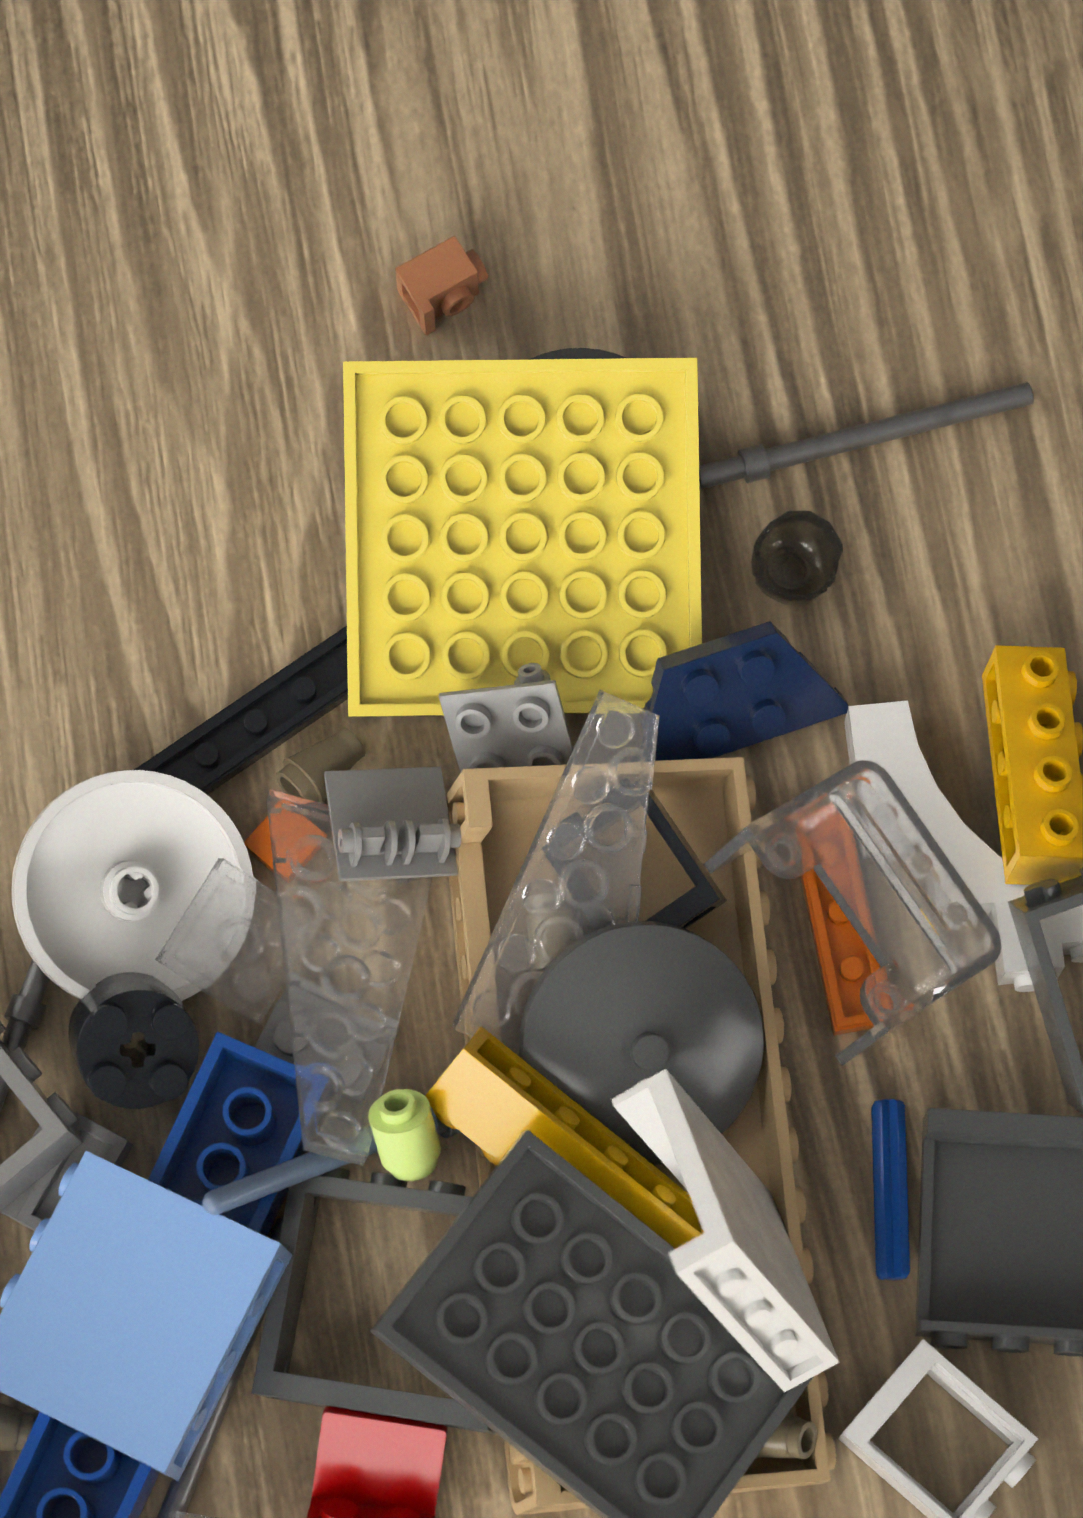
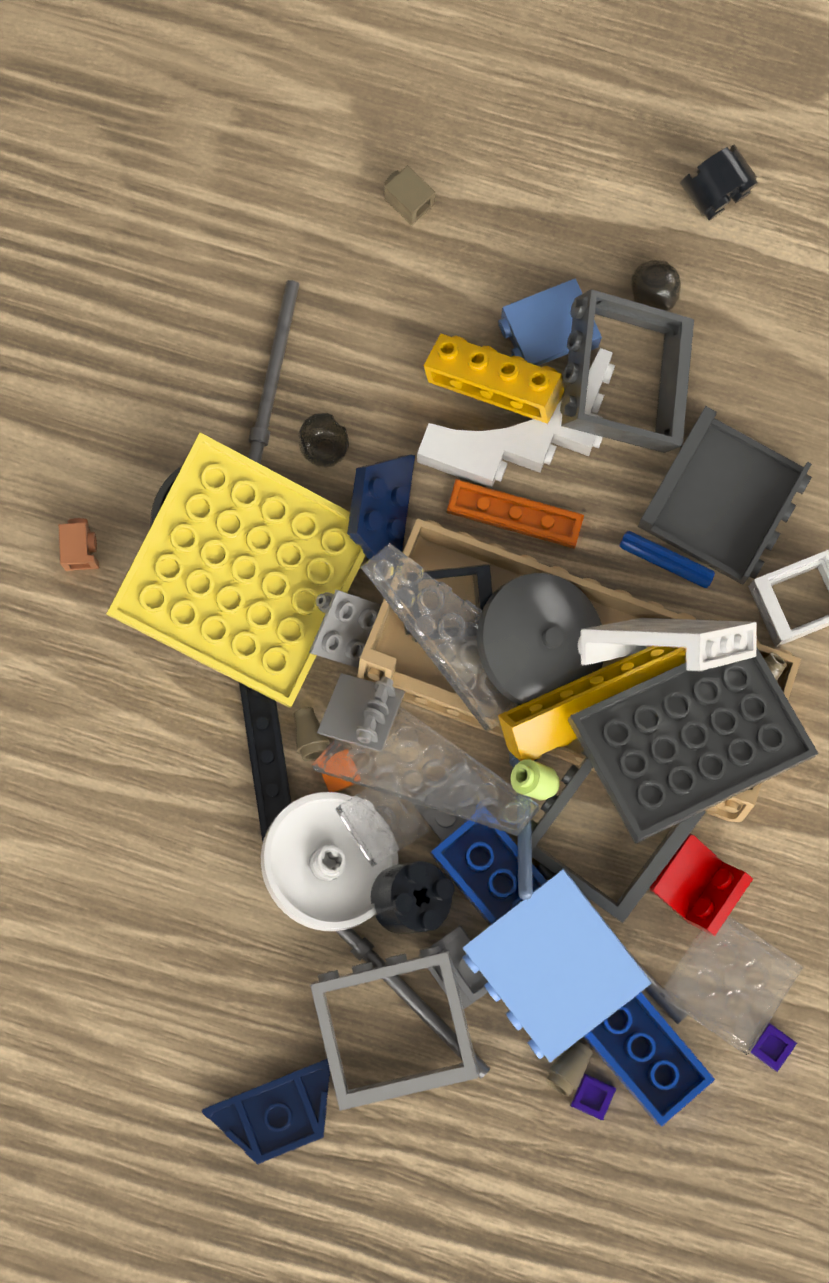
camera: 65 degrees left, 5 degrees up
(887, 883) = (525, 479): clear windscreen -> none

